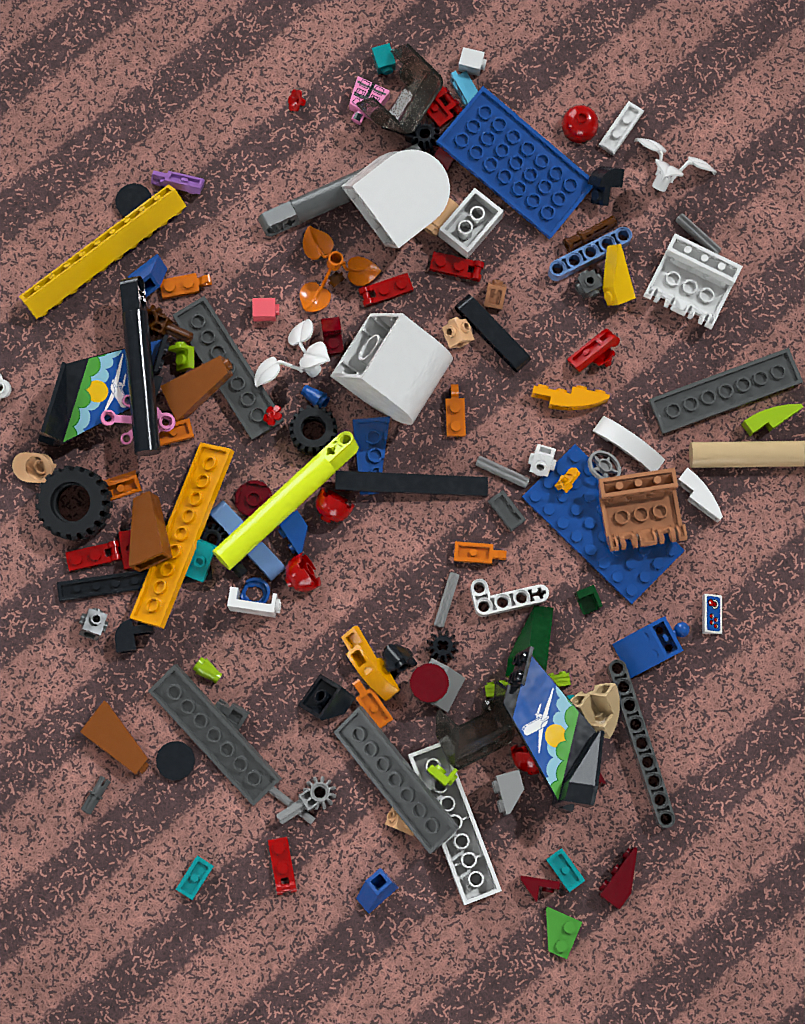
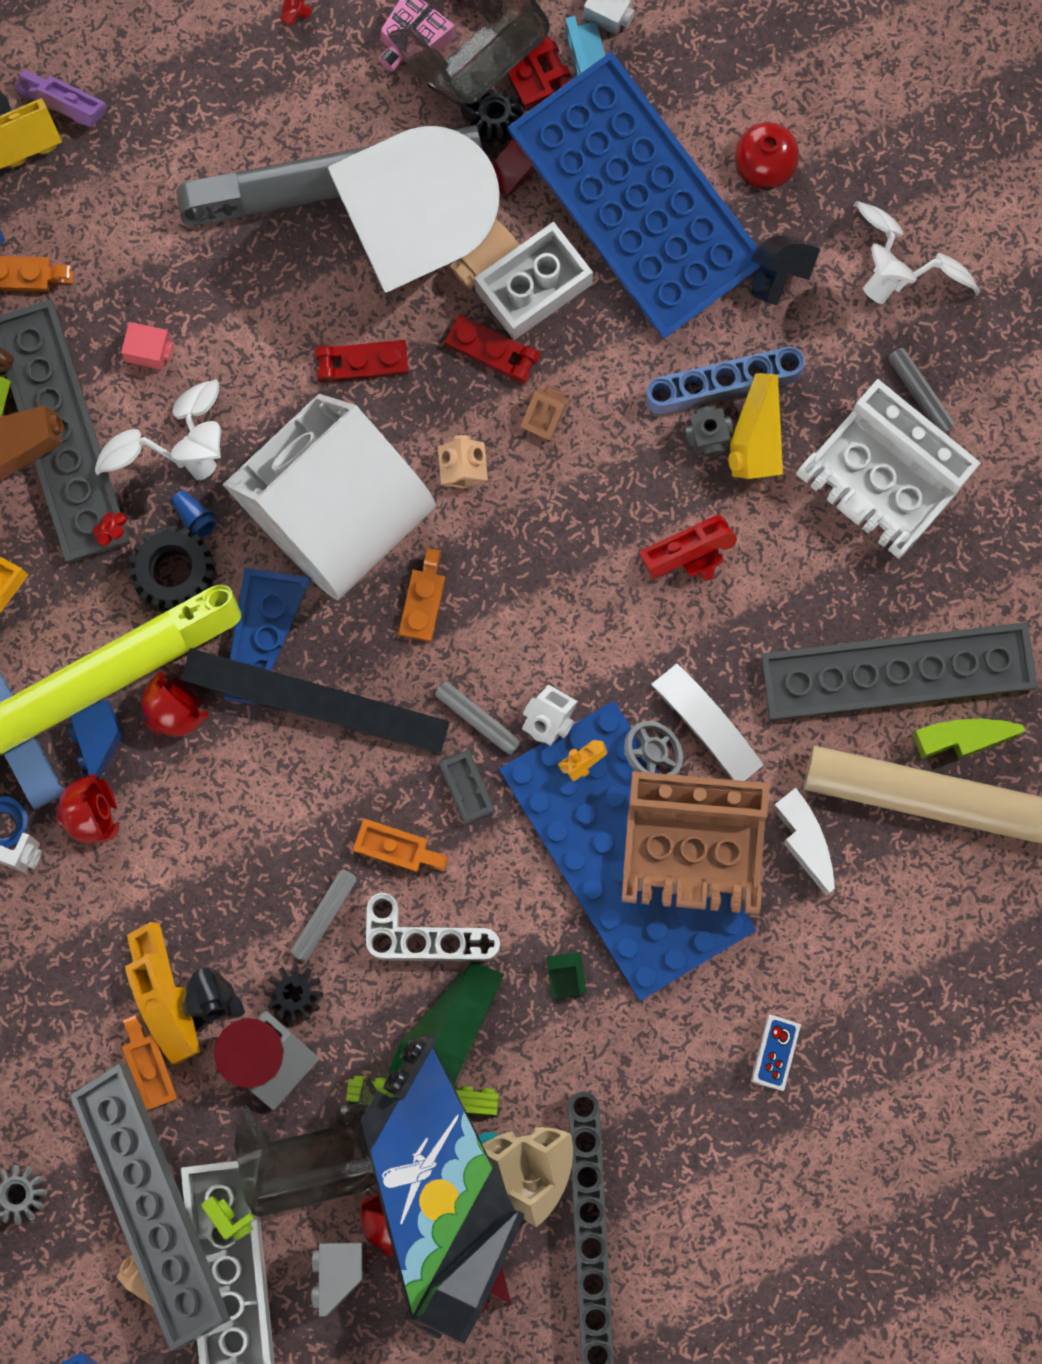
camera: 20 degrees right, 0 degrees up
(258, 494) = (53, 651): dark red tile -> none
(318, 244) = (272, 258): orange plant -> none
(326, 699) = (72, 1037): black slope -> none
(332, 335) = (249, 417): dark red slope -> none
(336, 278) = (281, 322): reddish brown plate -> none
(492, 333) = (523, 477): black beam -> none
(578, 399) = (639, 625): light orange slope -> none
(582, 237) = (717, 346): reddish brown pin -> none
(621, 128) = (835, 178): white tile -> none
(647, 648) = (646, 1084): blue slope -> none

